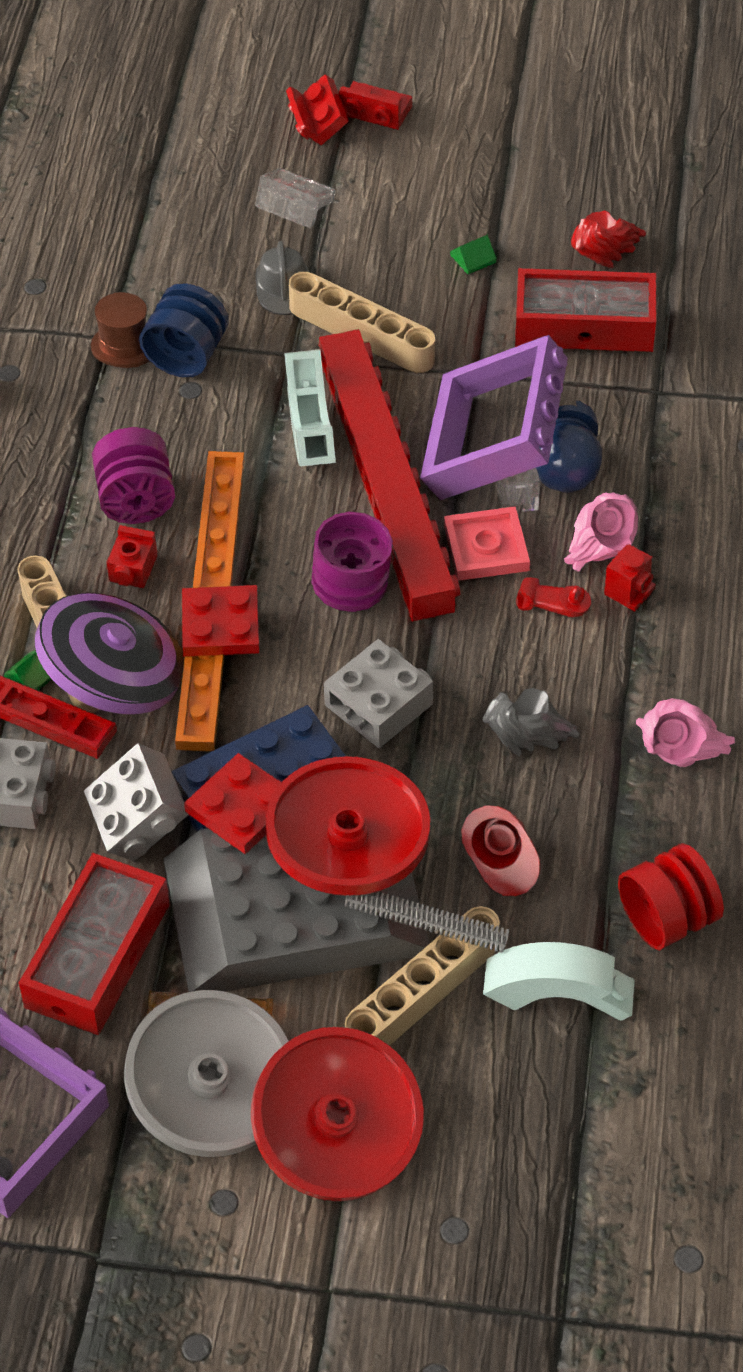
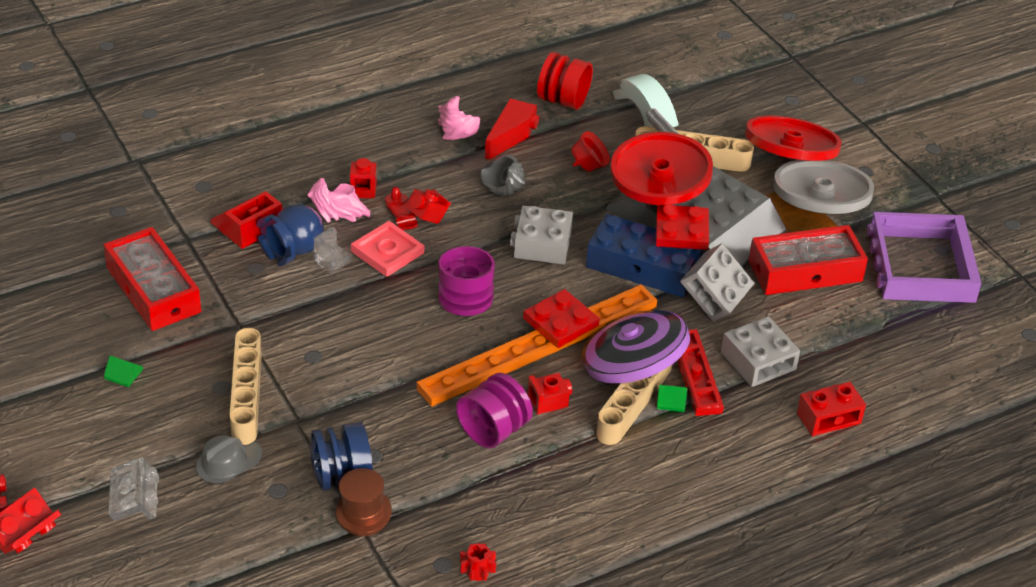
camera: 130 degrees left, 10 degrees down
(308, 408) = (364, 364): light aqua arch -> none
(387, 476) = (358, 322): red brick -> none
(444, 468) = (284, 308): medium lavender window -> none
(525, 620) = (428, 205): none -> red brick
(605, 238) = (65, 301): red hair -> none
(634, 802) = (512, 127): none -> red slope
(635, 435) = (241, 221): none -> red slope

